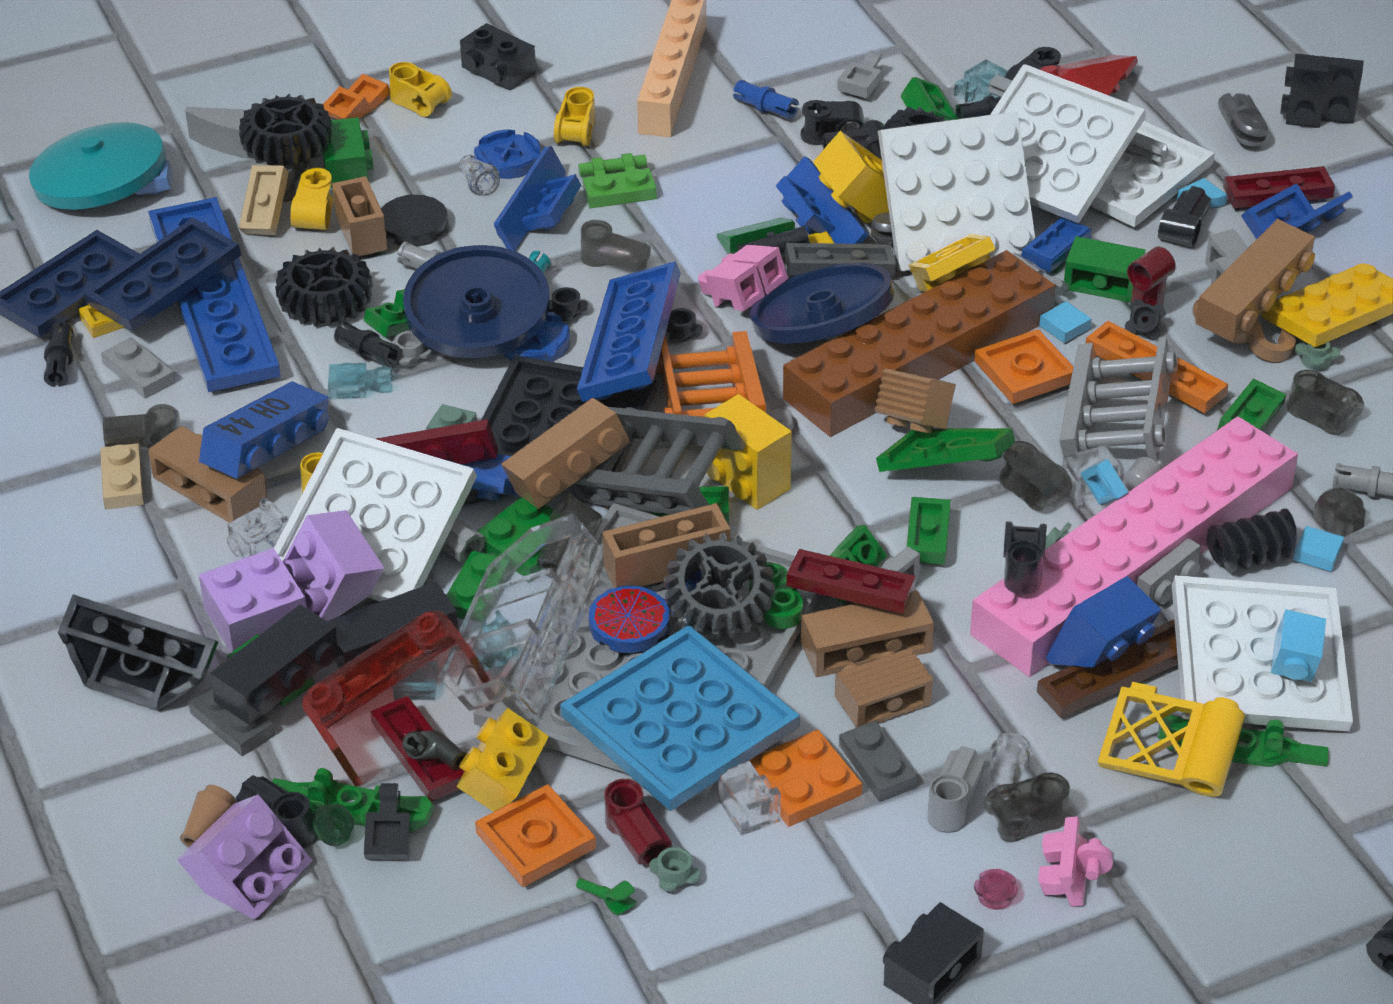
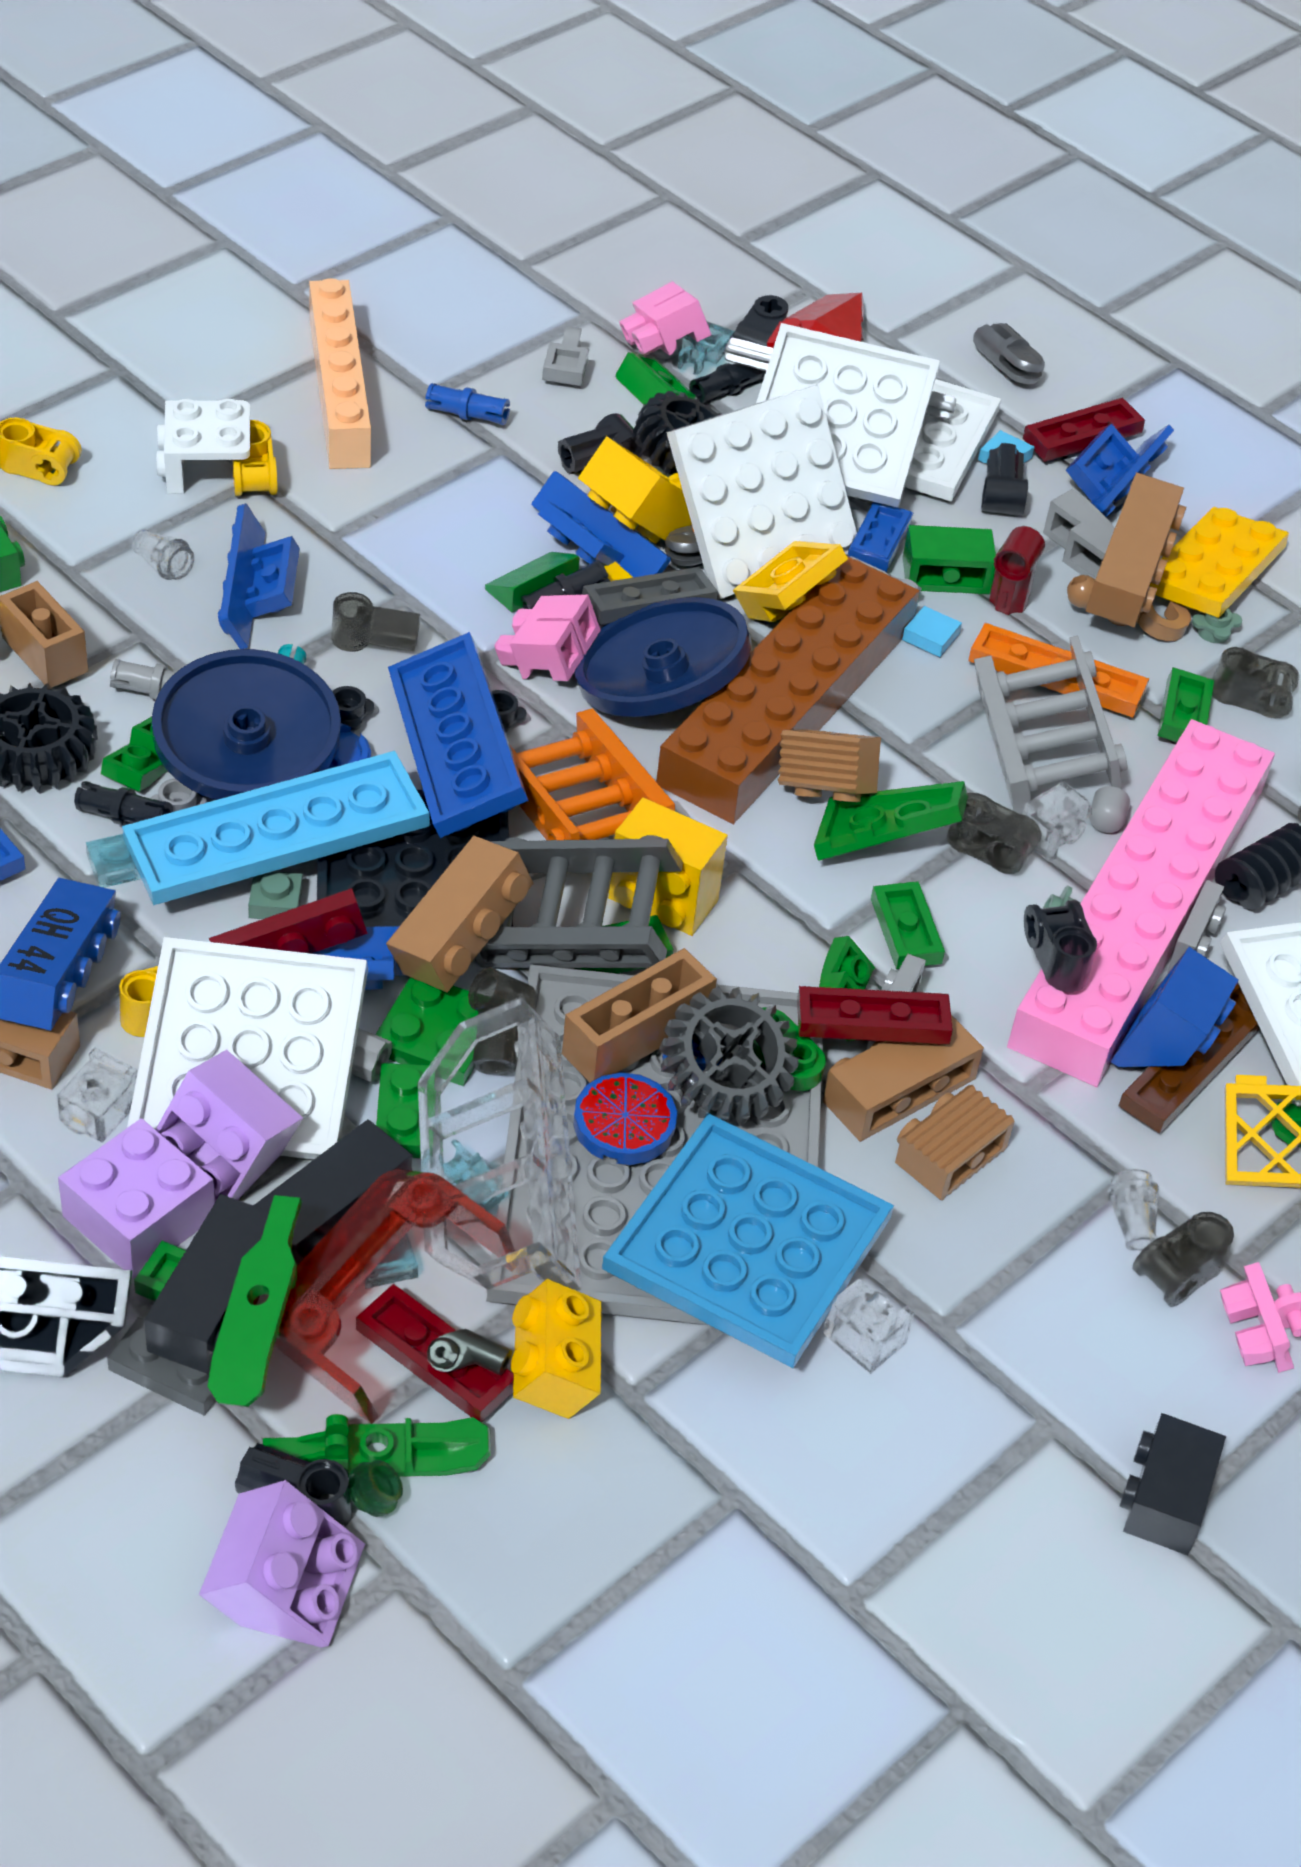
camera: 25 degrees left, 5 degrees up
(206, 810) = (205, 1514): medium nougat cone -> none
(282, 687) = (250, 1330): none -> green piece
(387, 830) = (451, 1481): black plate -> none
(414, 219) = (111, 624): black tile -> none
(464, 374) = (274, 827): none -> medium azure plate
(498, 56) = (119, 393): black brick -> none
(508, 152) = (186, 515): blue tile -> none
(535, 835) = (635, 1439): orange plate -> none
(540, 90) = (201, 433): none -> white bracket
(616, 899) = (769, 1501): green hand -> none
(617, 188) = (338, 544): bright green plate -> none
(633, 821) = (751, 1393): dark red piece -> none
(674, 869) = (824, 1429): sand green plate -> none
(808, 776) = (919, 1273): orange plate -> none
(830, 117) = (557, 420): black piece -> none
(877, 761) = (984, 1237): dark grey plate -> none
(950, 54) = (663, 319): none -> bright pink hips
(954, 789) = (1093, 1255): light grey piece -> none
(996, 888) = (1191, 1382): clear pink plate -> none
(1024, 366) = (918, 695): orange plate -> none
(1104, 482) = (1089, 828): medium azure tile -> none
(1154, 313) = (1031, 612): black plate -> none
(1321, 90) = (1084, 307): black plate -> none

